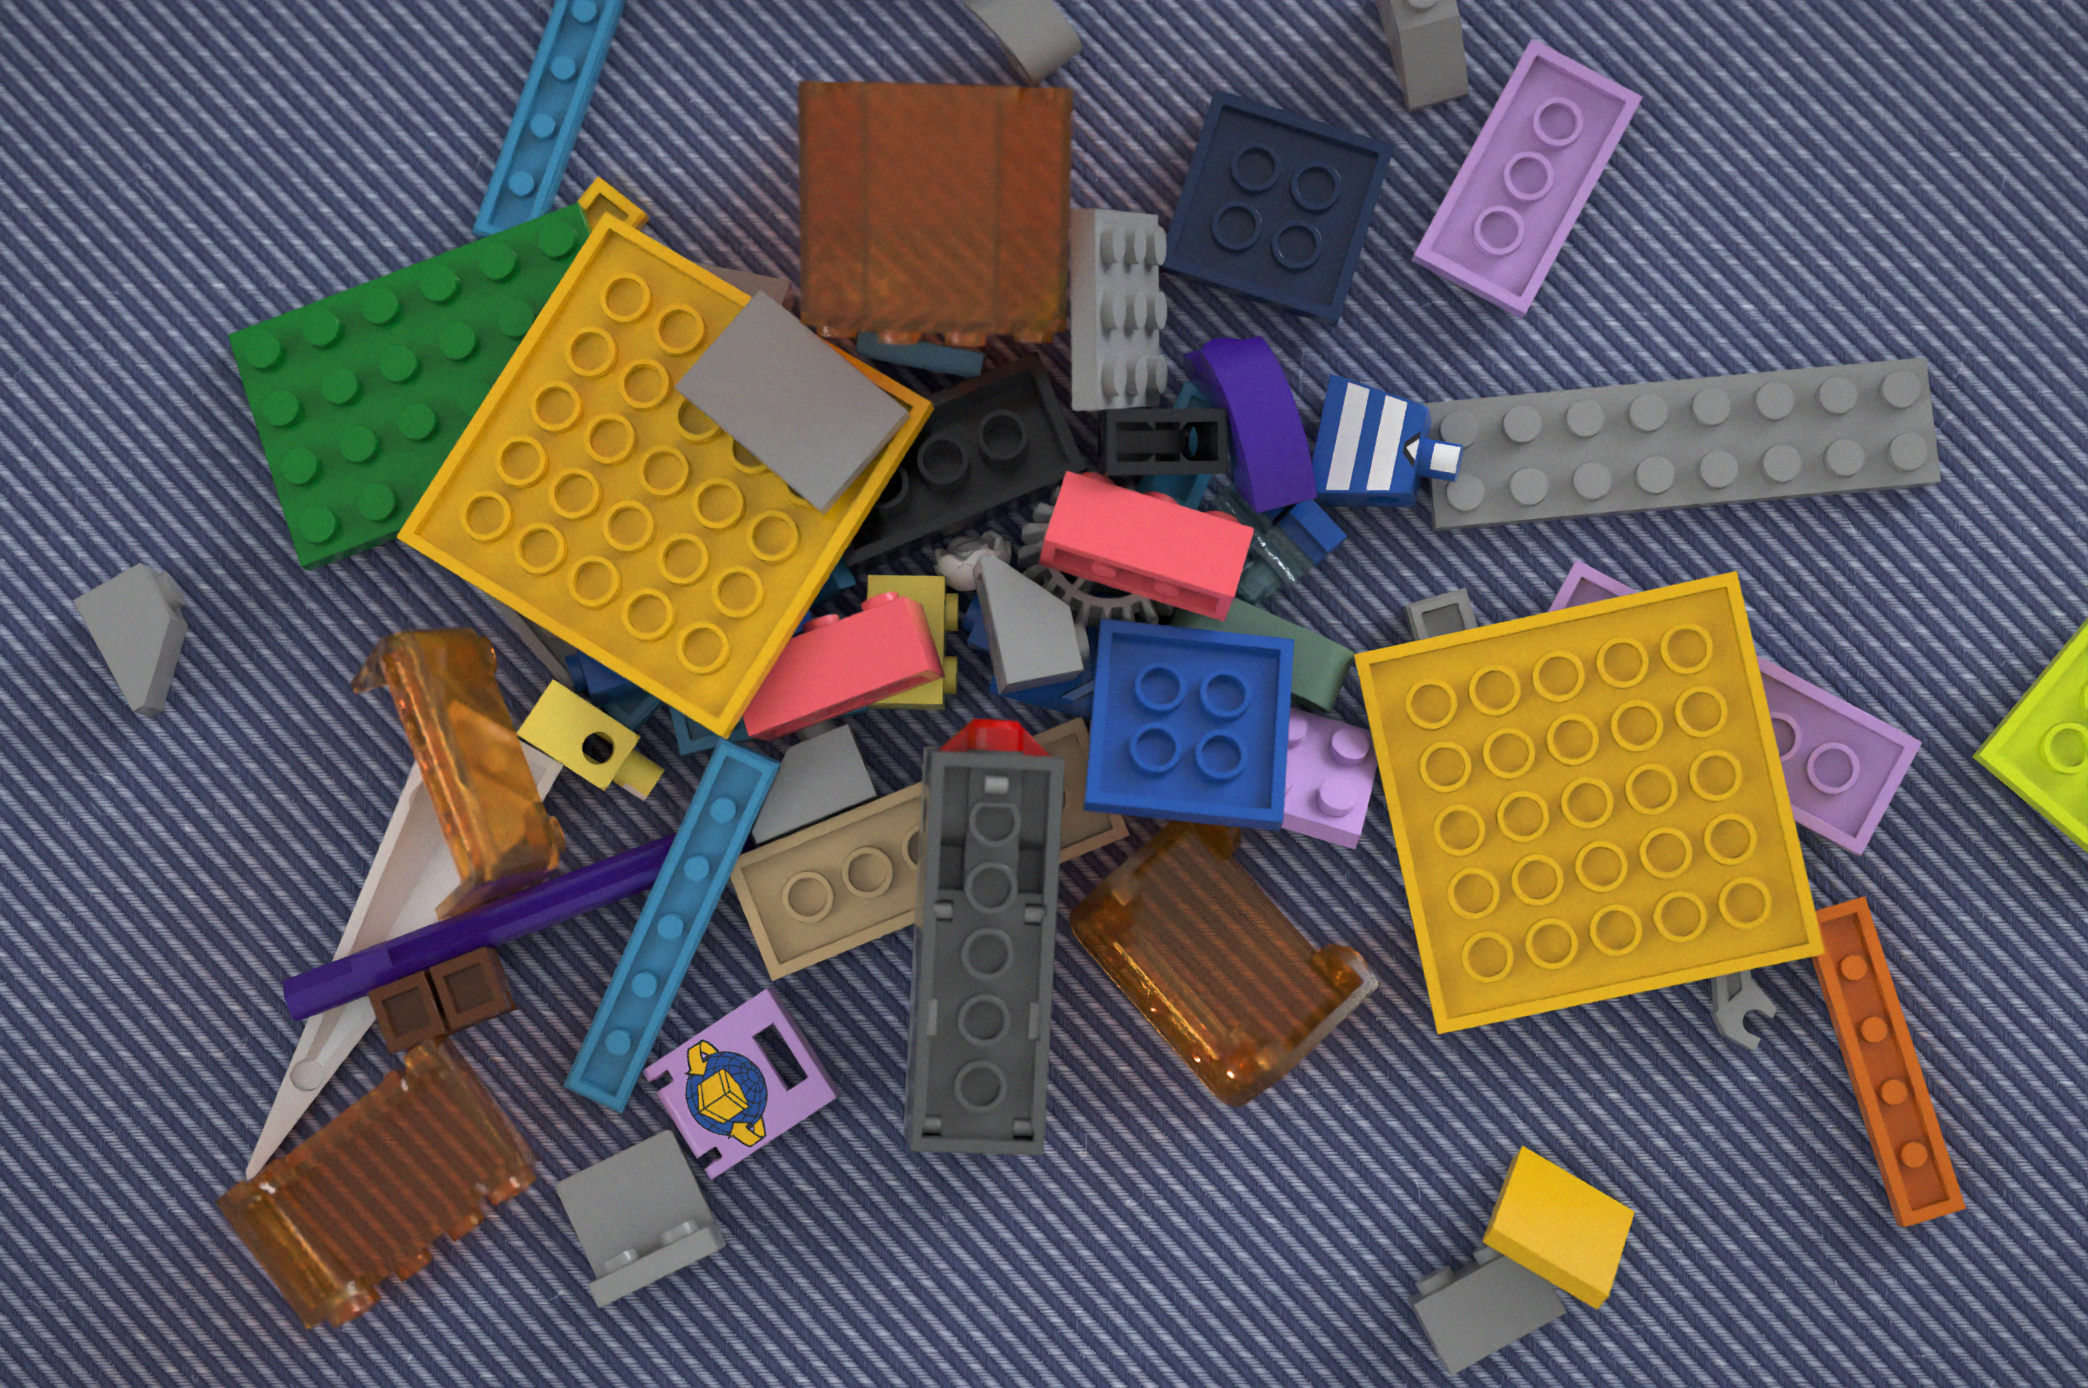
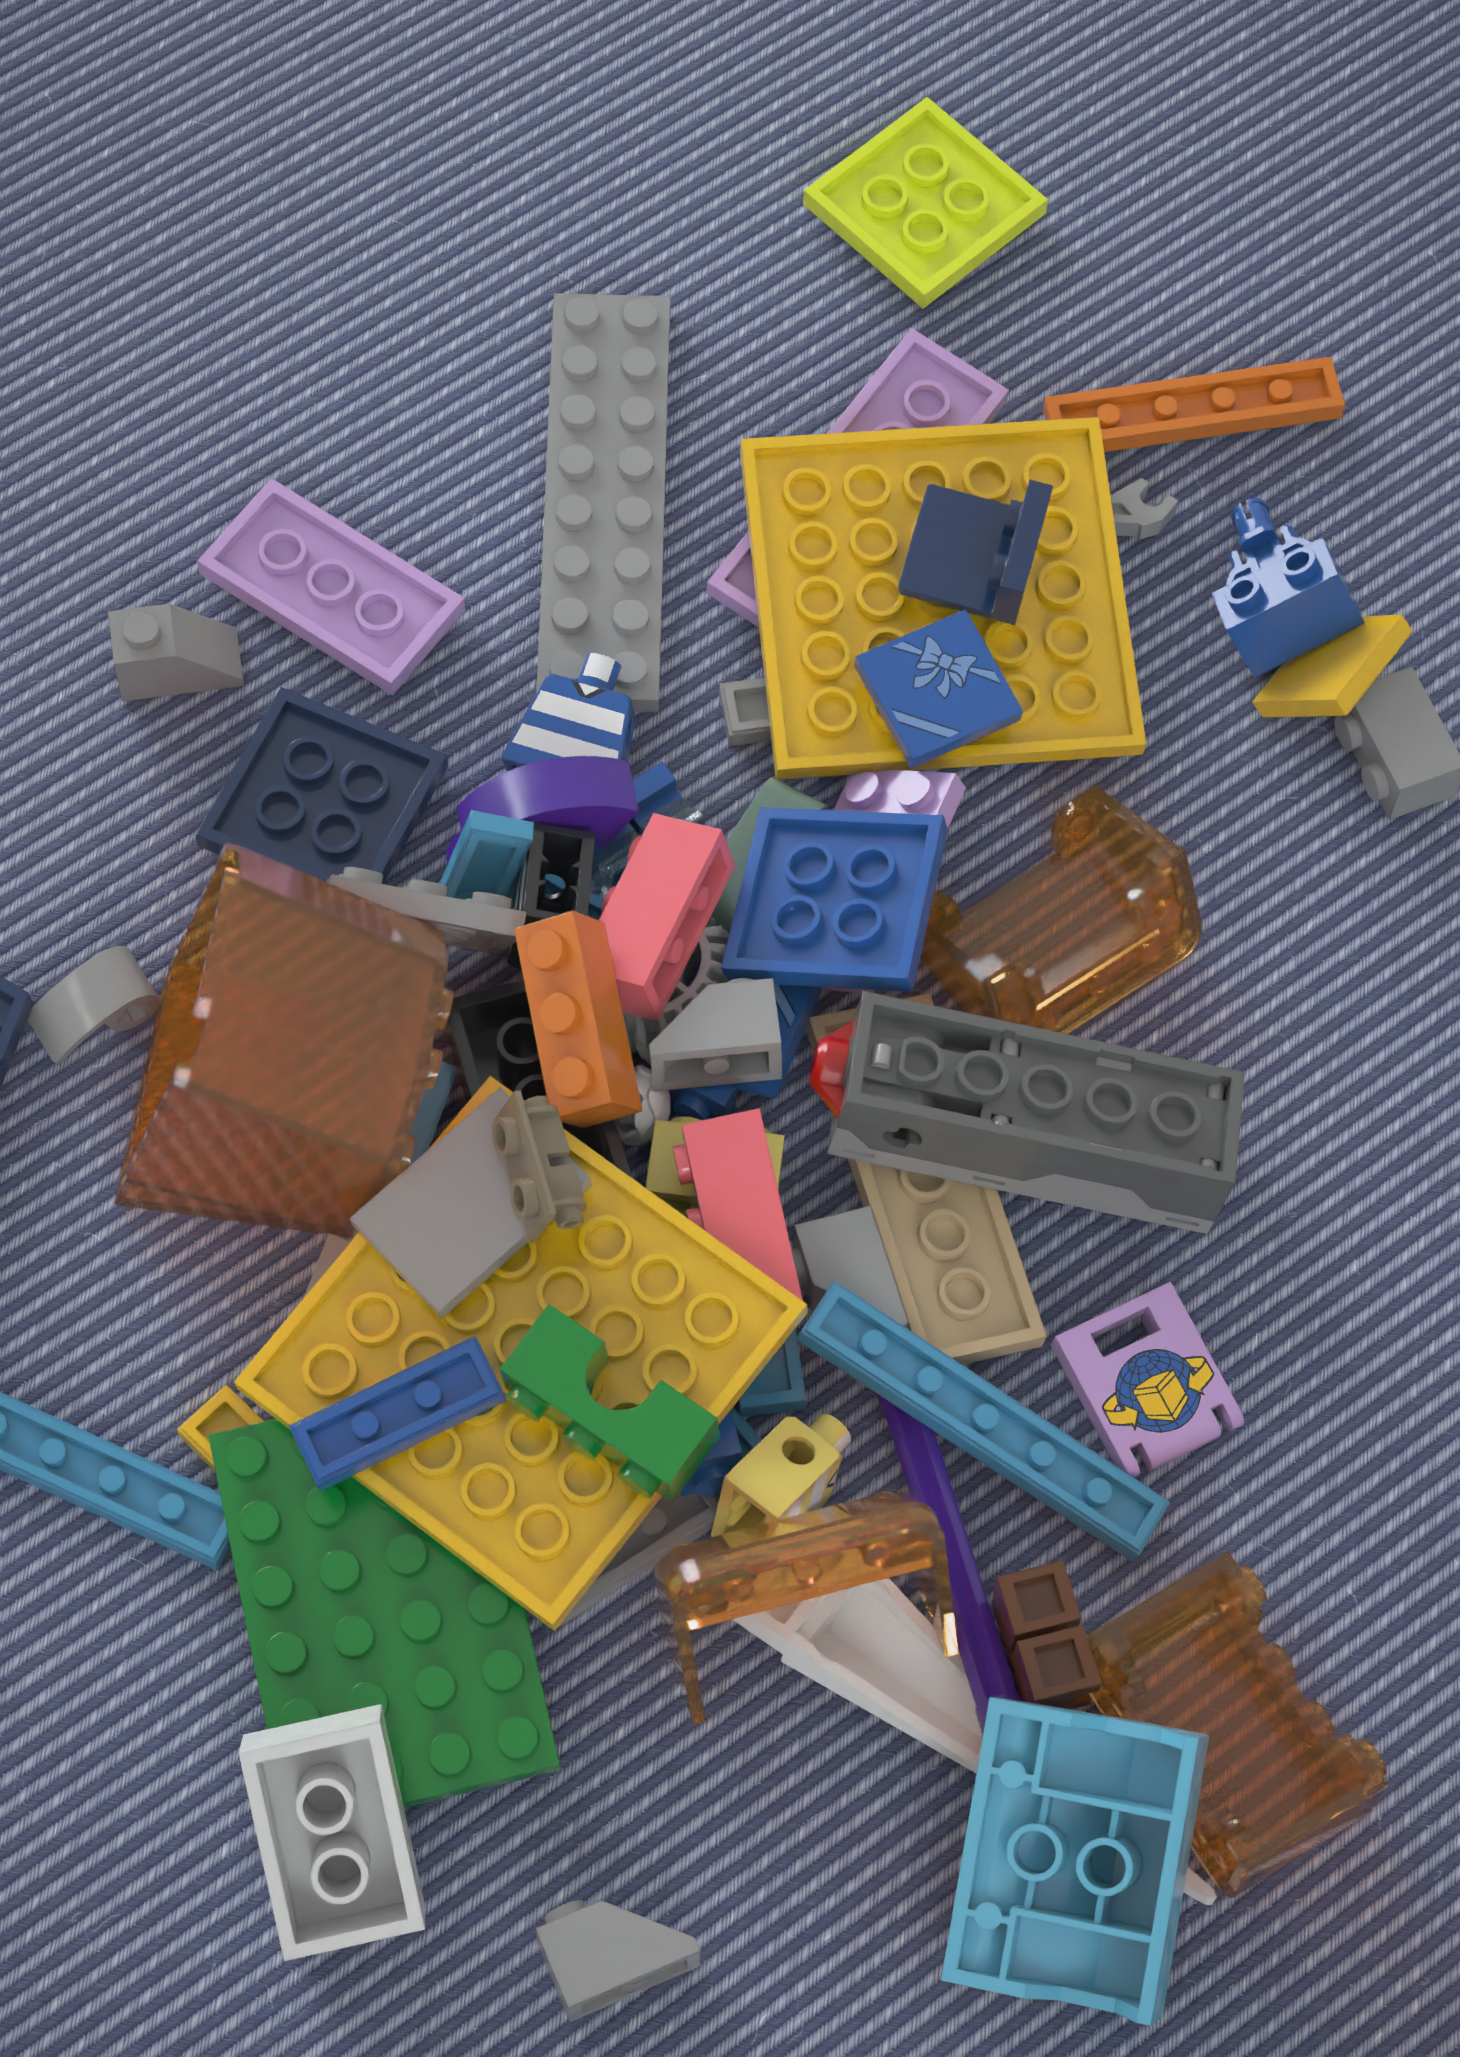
camera: 90 degrees left, 20 degrees down
(202, 369) = (332, 1832): none -> white brick
(242, 1045) = (1075, 1858): none -> medium azure piece
(580, 365) = (397, 1413): none -> blue tile
(608, 506) = (652, 1443): none -> green arch
(639, 1216) = (1284, 1489): light grey bracket -> none
(793, 464) = (527, 1138): none -> dark tan hinge
(996, 478) = (578, 1019): none -> orange brick
(1191, 371) = (487, 855): none -> dark azure tile
(1458, 808) = (938, 688): none -> blue tile
(1627, 829) = (974, 551): none -> dark blue bracket
(1645, 1167) = (1284, 594): none -> blue brick

